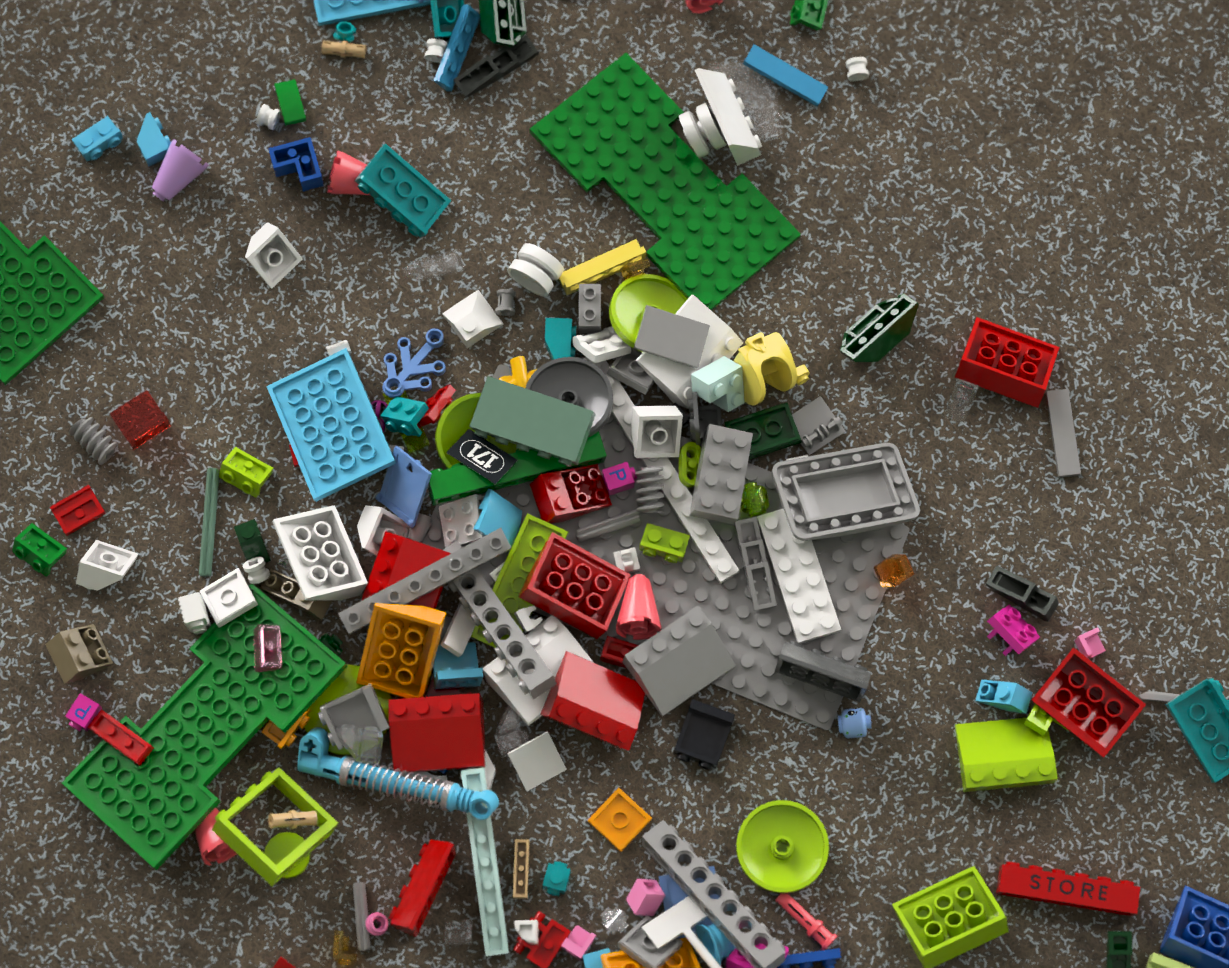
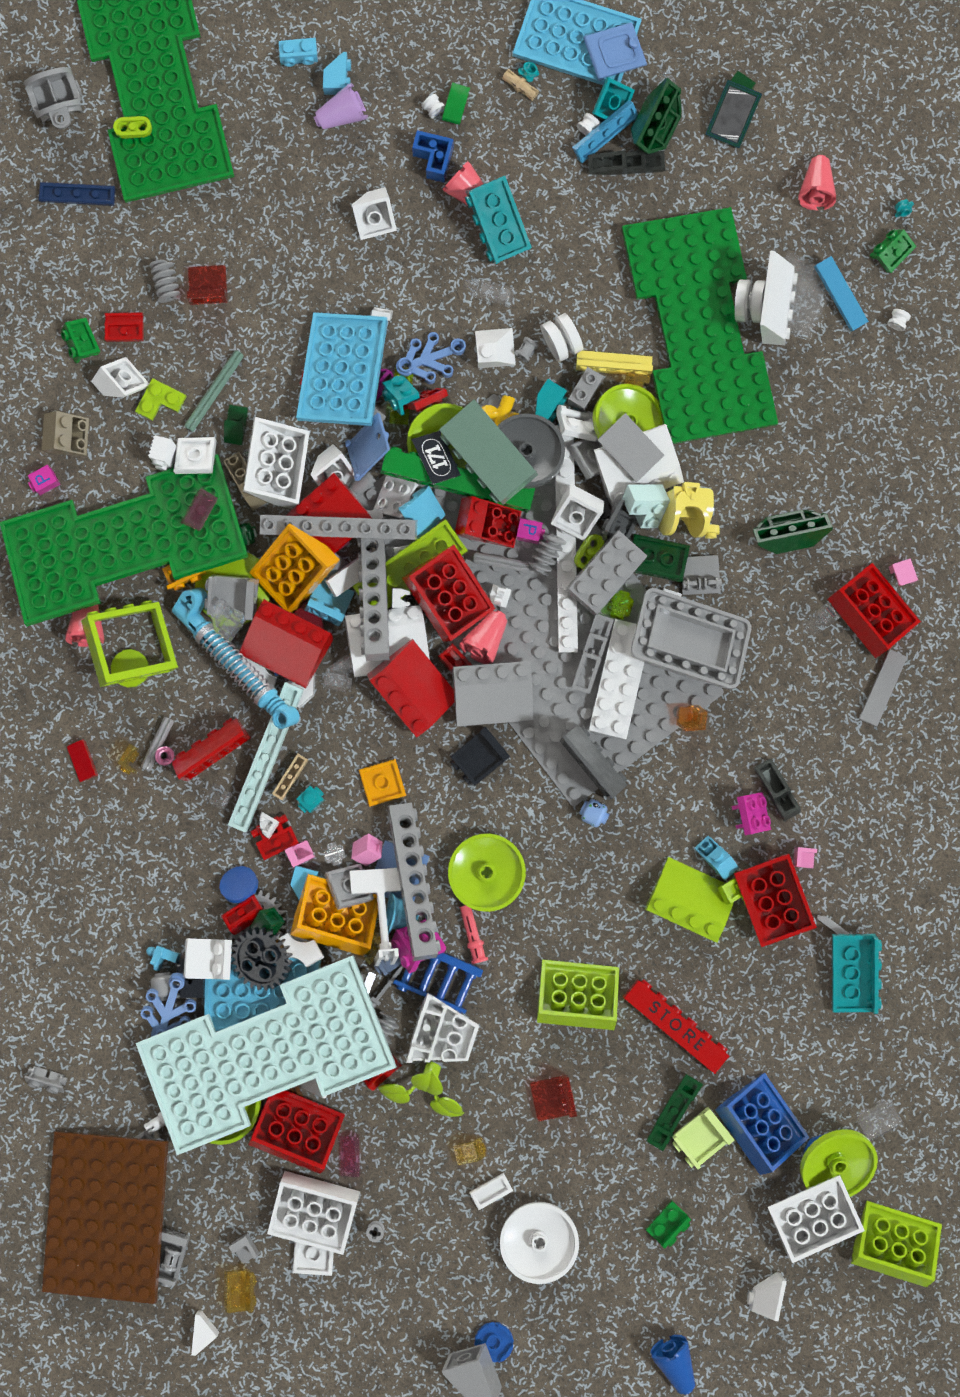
camera: 30 degrees right, 10 degrees up
(120, 737) = (58, 514): red tile -> none
(152, 559) = (157, 395): none -> lime plate
(245, 472) = (261, 368): lime bracket -> none
(256, 570) = (226, 446): white wheel -> none
(278, 820) = (143, 646): tan pin -> none
(536, 761) = (346, 705): white piece -> none
(664, 543) = (535, 599): lime bracket -> none
(1013, 307) = (904, 572): none -> bright pink panel

